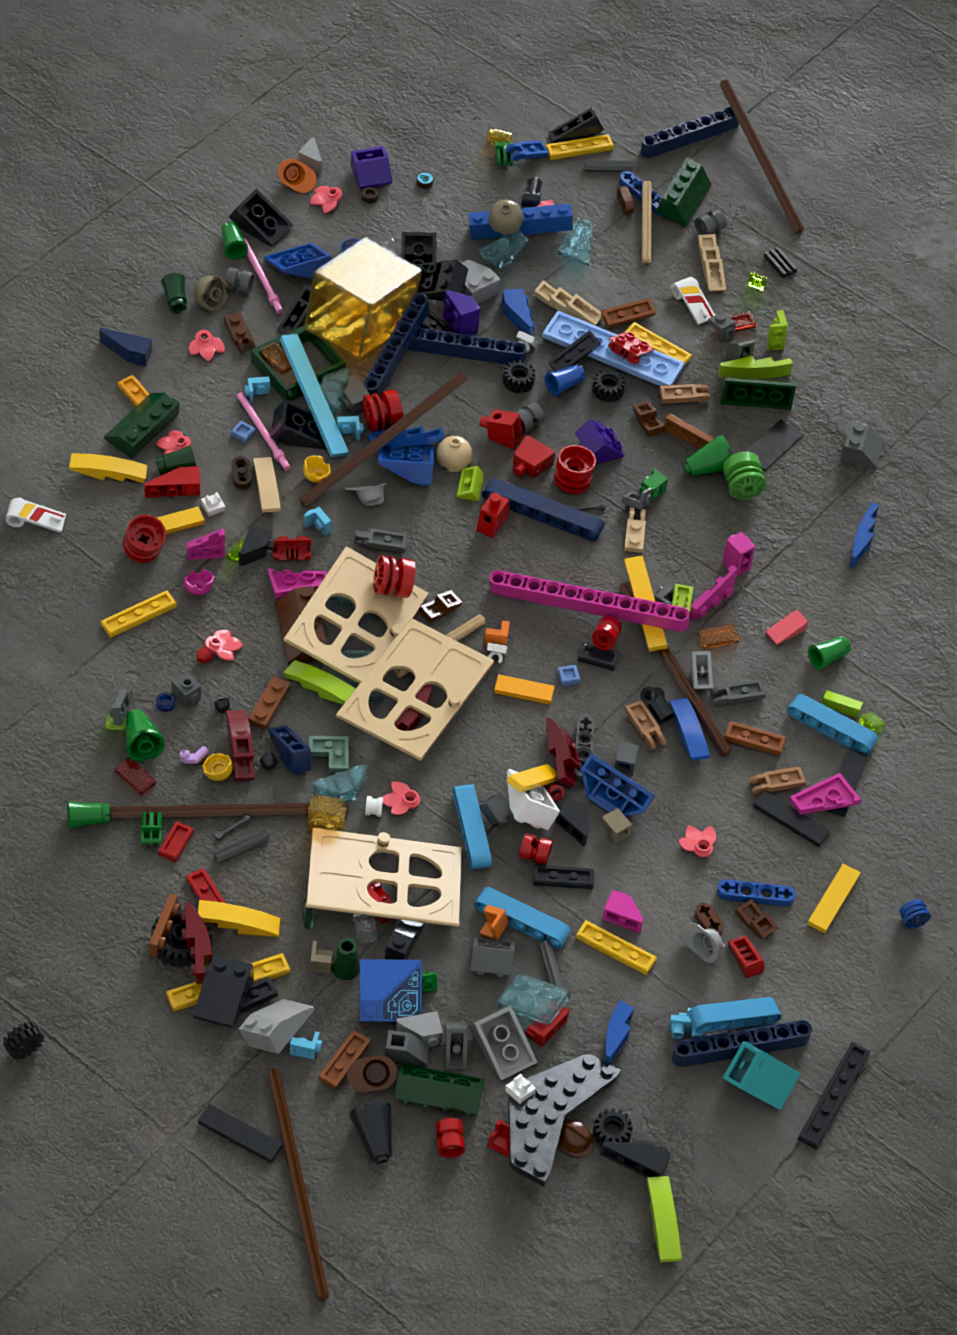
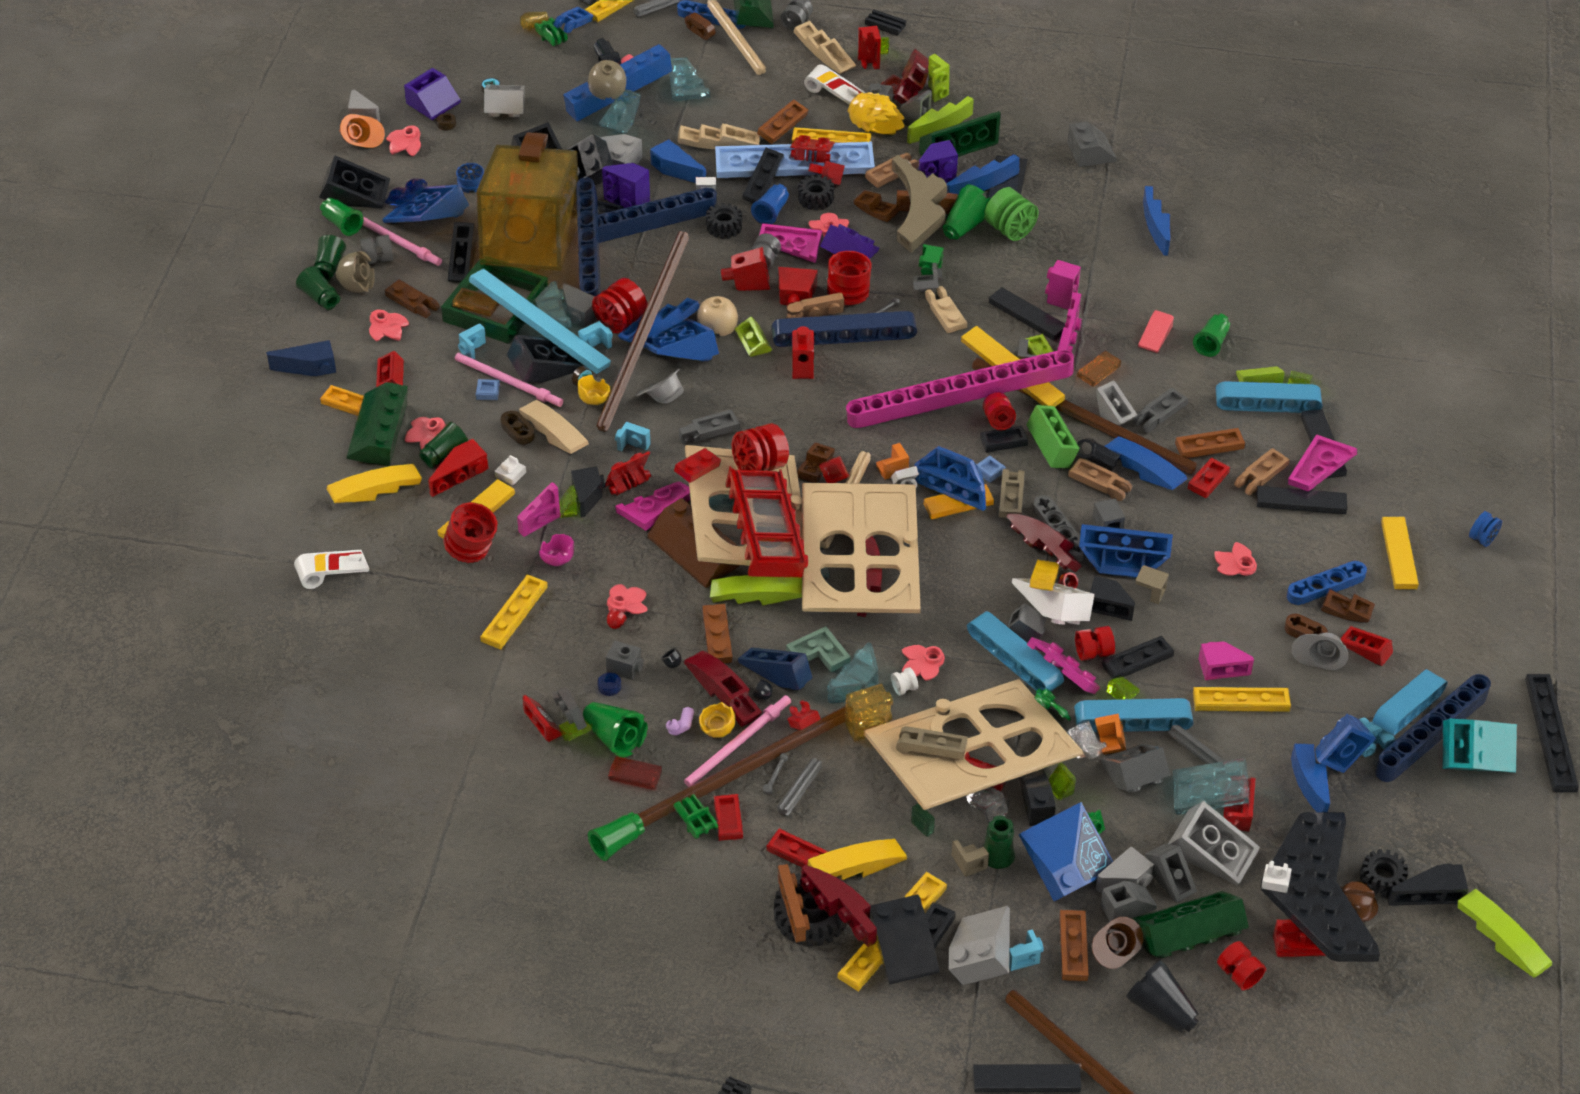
camera: 25 degrees left, 5 degrees down
(99, 702) = (540, 719): none -> red slope
(183, 384) = (390, 369): none -> red slope
(202, 266) = (329, 254): none -> dark green plant
(261, 781) = (769, 714): none -> bright pink bar
(280, 797) = (803, 718): none -> red tile
(288, 243) = (402, 195): none -> clear blue slope
(317, 451) = (579, 373): none -> dark brown tile
(340, 566) = (697, 465): none -> red plate
(350, 861) = (931, 742): none -> dark tan plate
(356, 636) = (767, 523): none -> red window
(387, 251) = (532, 147): none -> reddish brown slope
(424, 196) = (504, 99): none -> light grey slope
(429, 939) = (1062, 782): none -> clear neon green slope
(445, 619) = (834, 470): none -> red tile
(466, 874) = (1046, 699): none -> green plate
(470, 918) = (1086, 740): none -> clear bracket
(501, 856) = (1070, 665): none -> dark pink wing
(527, 669) = (952, 476): none -> blue wedge
(532, 894) = (1122, 689): none -> clear neon green slope
(533, 481) = (817, 306): none -> medium nougat hinge
(560, 417) = (796, 241): none -> dark pink wing
(568, 702) = (1011, 492): none -> dark tan plate
(600, 414) = (825, 221): none -> coral plate
(631, 373) = (830, 170): none -> red plate
(632, 673) = (1052, 436): none -> bright green brick
(655, 1020) = (1344, 744): none -> blue slope
(674, 442) = (924, 213): none -> dark tan arch
(696, 562) = (1027, 313): none -> black tile
(705, 339) = (875, 114): none -> yellow head
(715, 408) = (940, 160): none -> dark purple slope
(730, 765) = (1208, 478): none -> red plate
(743, 434) = (986, 177): none -> blue slope
(744, 278) = (869, 46): none -> red hinge
(760, 321) = (913, 76): none -> dark red slope

